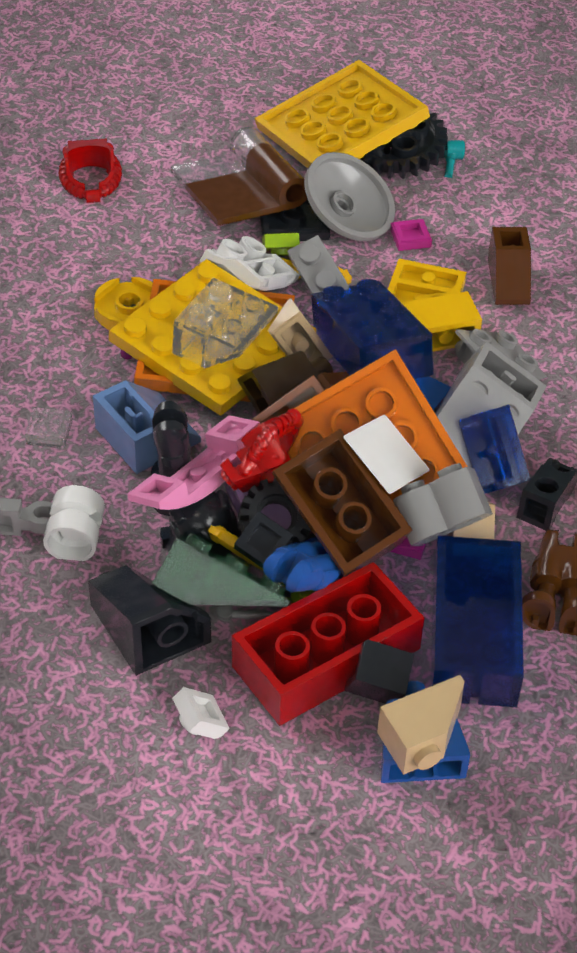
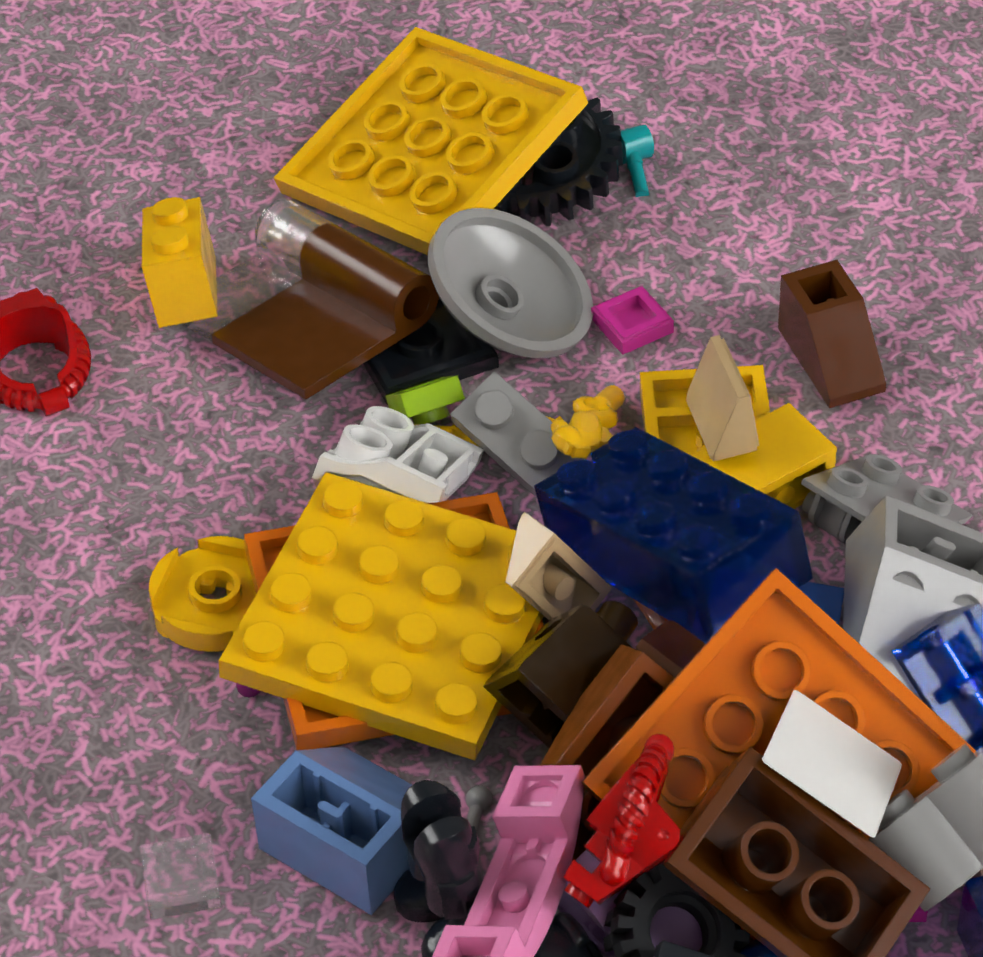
camera: 15 degrees left, 0 degrees up
(183, 143) = (179, 261): none -> yellow brick
(219, 324) = (428, 598): clear slope -> none
(358, 272) = (589, 423): none -> yellow animal
(429, 281) = (722, 404): none -> tan slope

